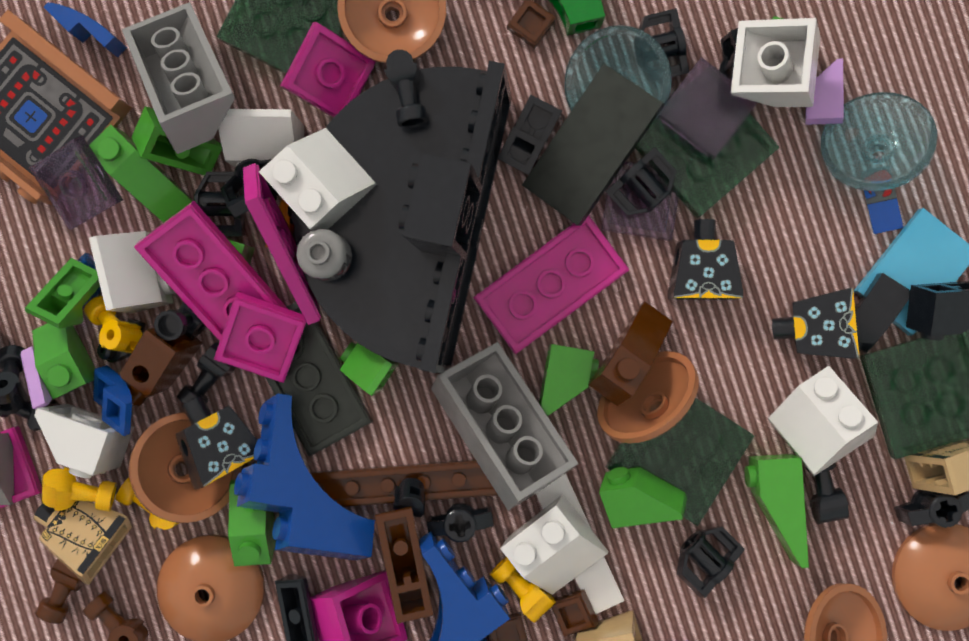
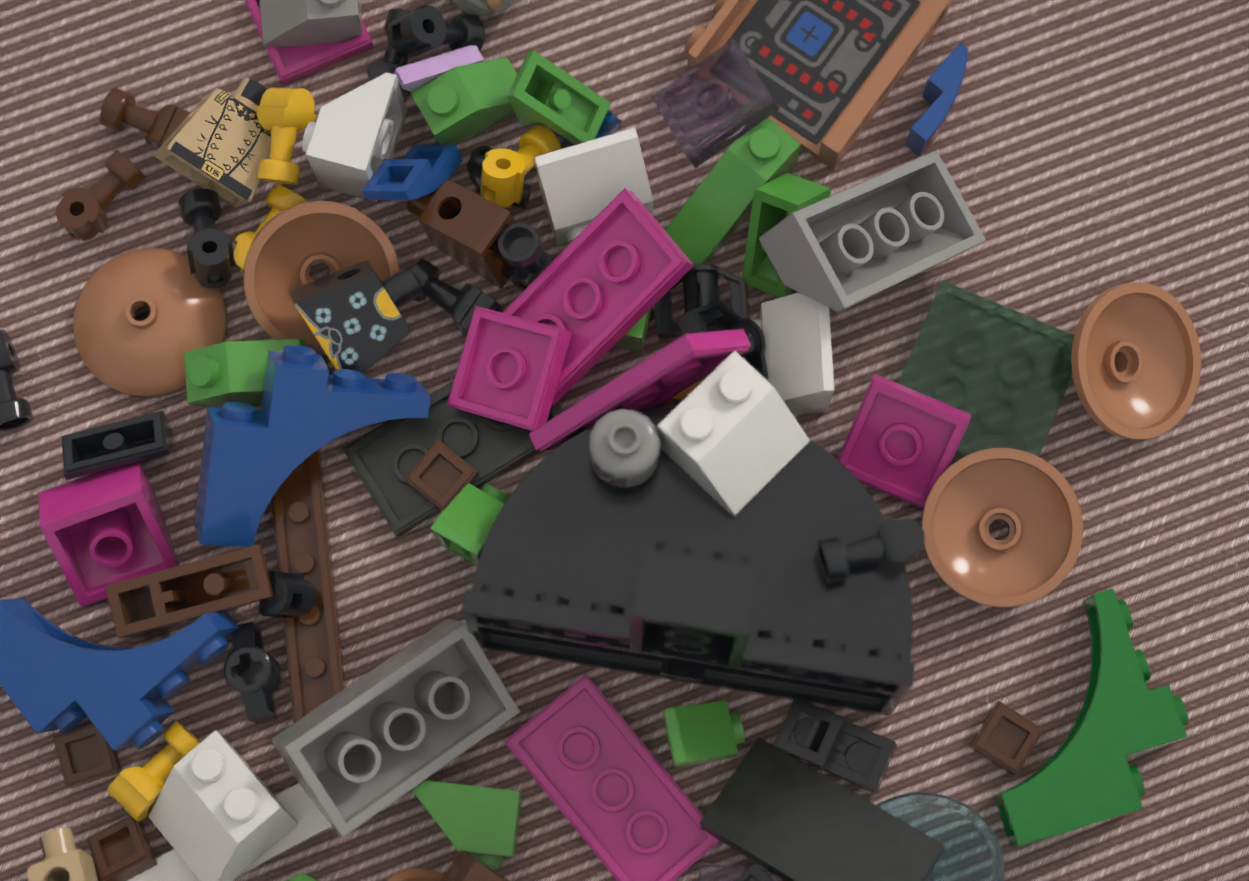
camera: 90 degrees right, 10 degrees down
(158, 547) = (208, 248): none -> black leg
(333, 388) = (441, 475): none -> reddish brown tile
(520, 221) = (702, 733): none -> bright green slope

